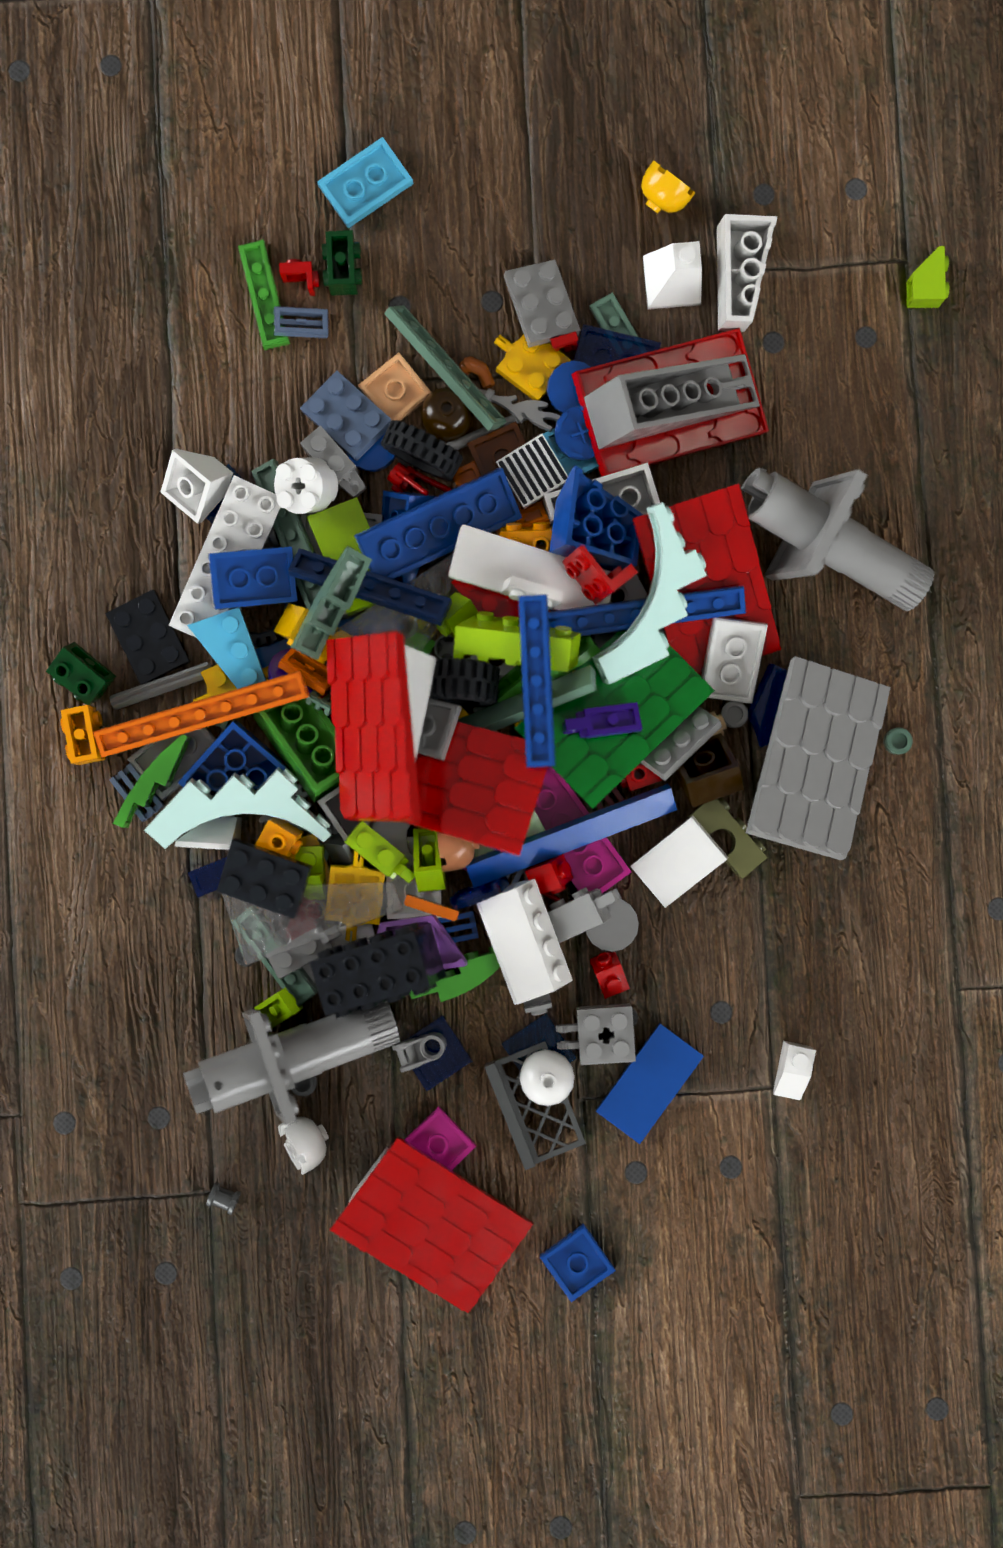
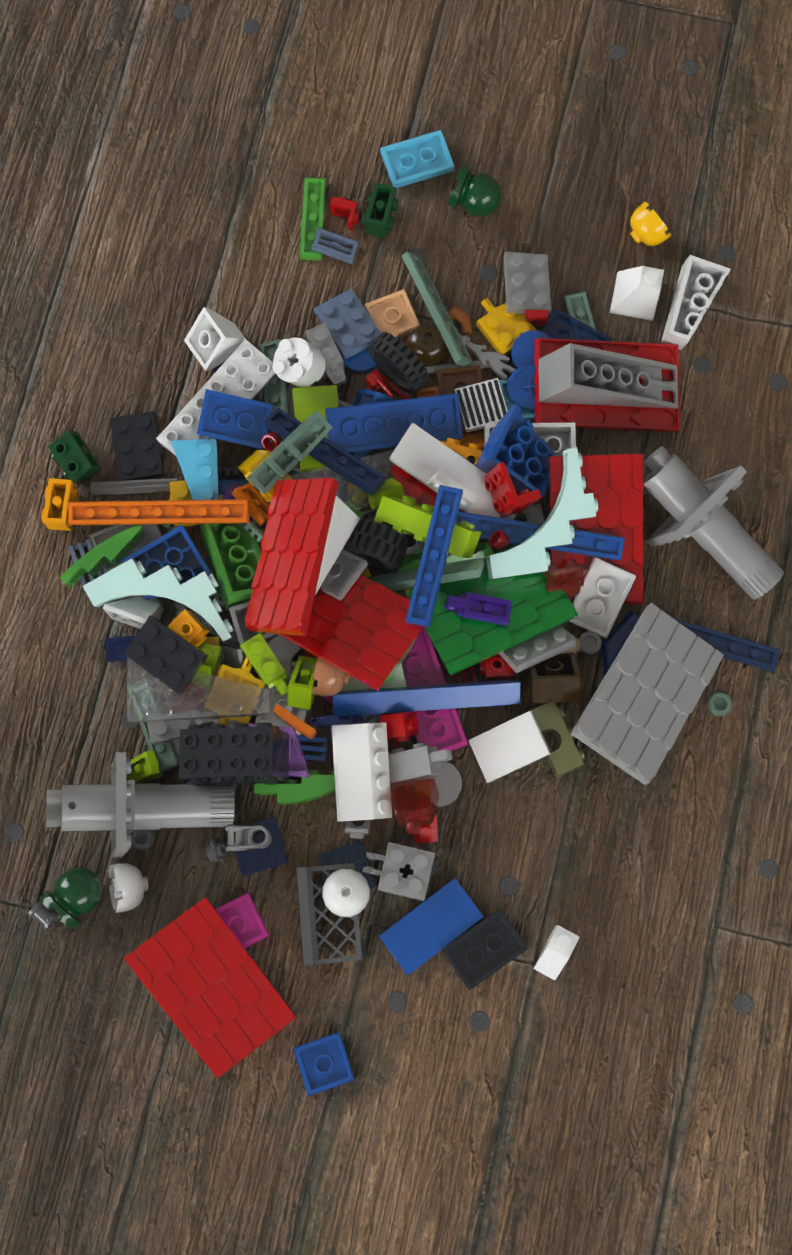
camera: 10 degrees right, 10 degrees down
(250, 1169) = (74, 895): none -> dark green tile
(304, 591) = (271, 441): none -> red hinge
(388, 1072) = (216, 850): none -> dark grey plate
(450, 207) = (476, 193): none -> dark green tile
(593, 959) = (415, 803): none -> clear red torso
(602, 634) = (499, 540): none -> red hinge
(693, 655) = (568, 578): none -> clear red hips
(715, 1091) = (484, 949): none -> black plate
(895, 671) = (737, 648): none -> dark blue tile

